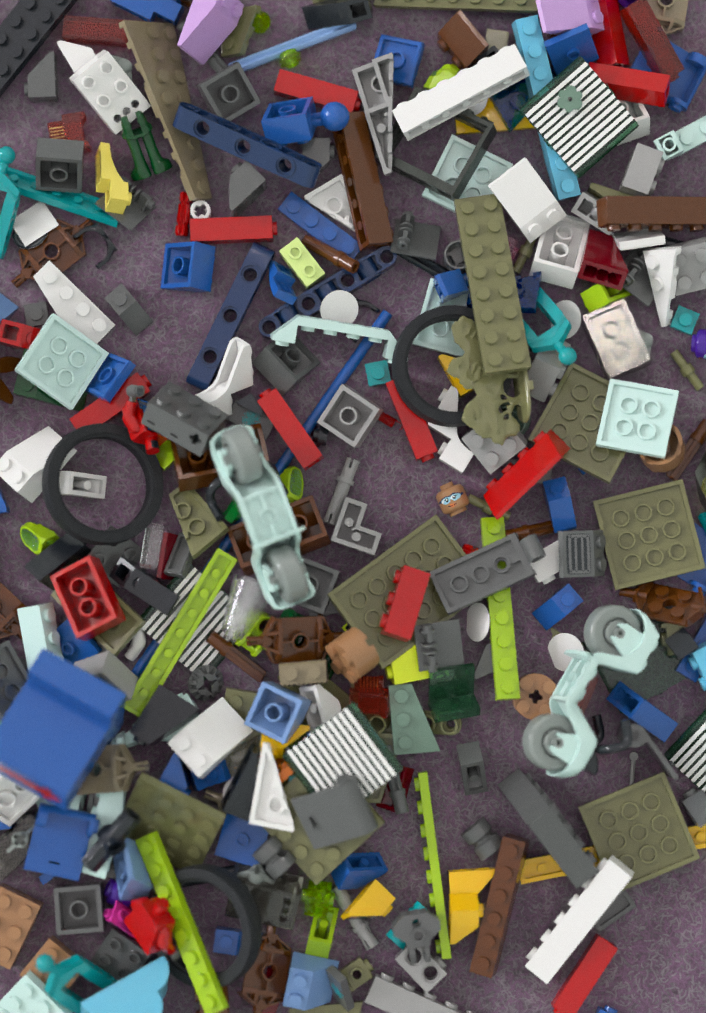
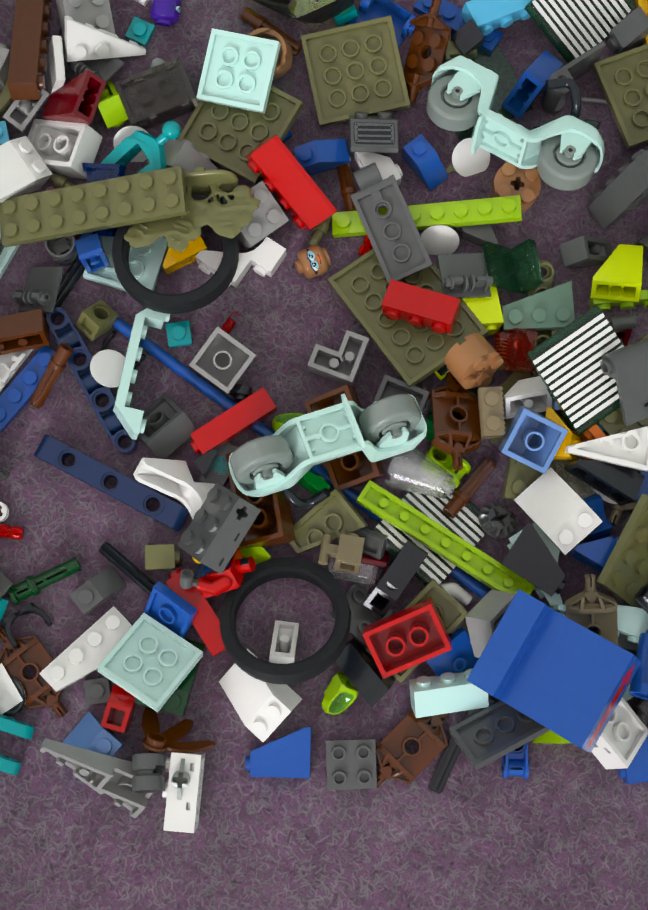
camera: 90 degrees left, 5 degrees down
(133, 250) = (71, 566): none -> dark green pin
(150, 336) = (127, 567): none -> black axle
(161, 367) = (161, 557): none -> olive brick
(165, 539) = (347, 552): none -> dark tan brick
(188, 266) = (55, 526): blue slope -> none
(233, 229) = (19, 478): red brick -> none
(280, 281) = (77, 426): blue slope -> none
(302, 263) = (59, 406): yellowish green brick -> none
(341, 491) = (299, 374): light grey pin -> none
(380, 288) = (96, 320): none -> olive brick
(414, 427) = (235, 298): red brick -> none
(447, 799) = (620, 275): none -> neon yellow slope
(687, 370) = (190, 31): olive bar -> none

